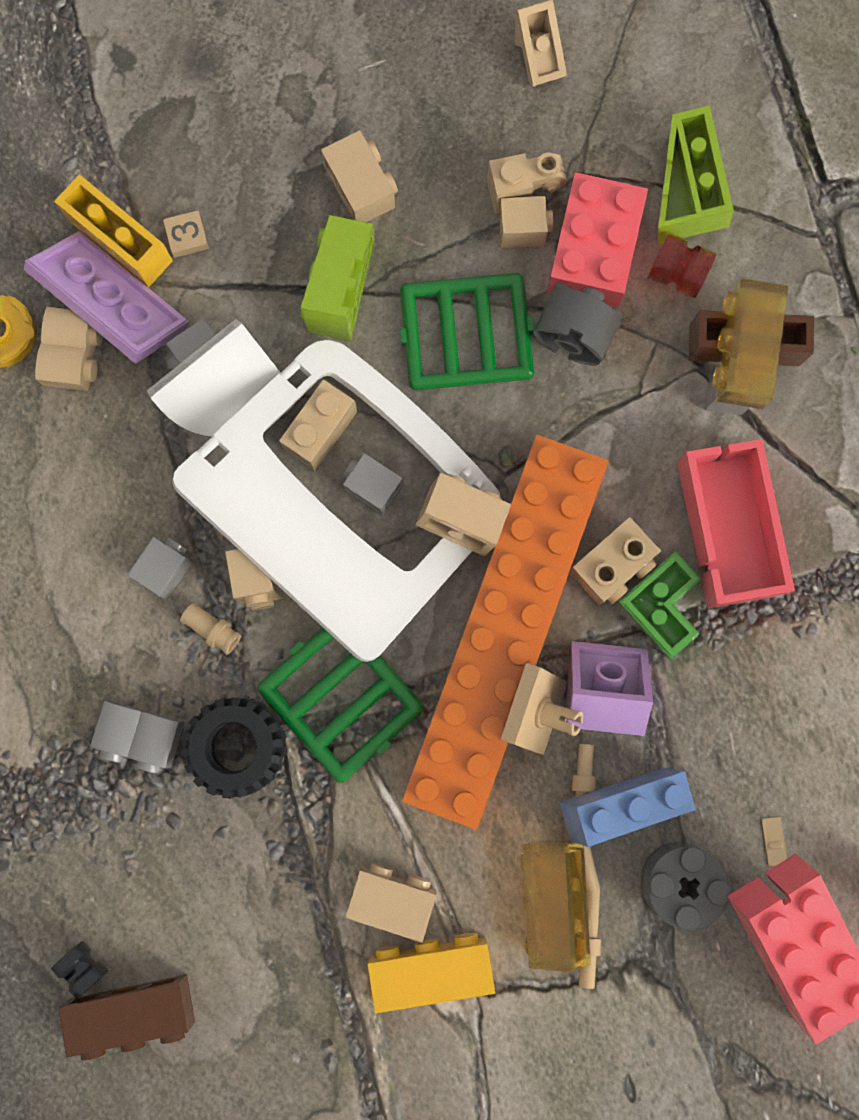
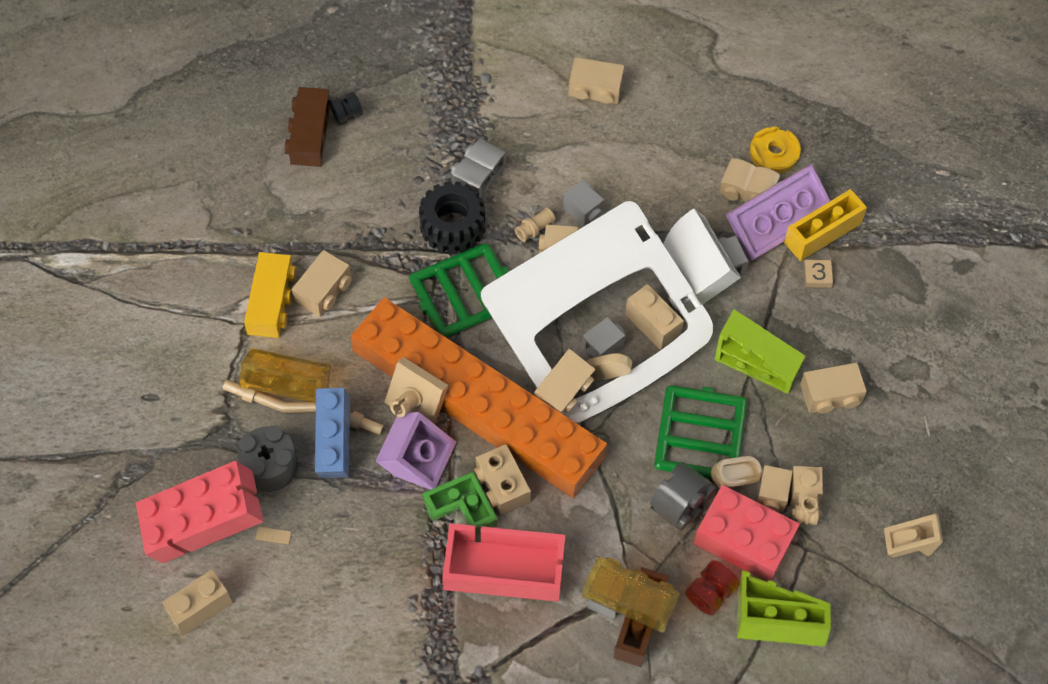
camera: 105 degrees right, 20 degrees down
(415, 465) = (610, 366): none -> tan tile
(516, 271) = (736, 472): none -> tan tile

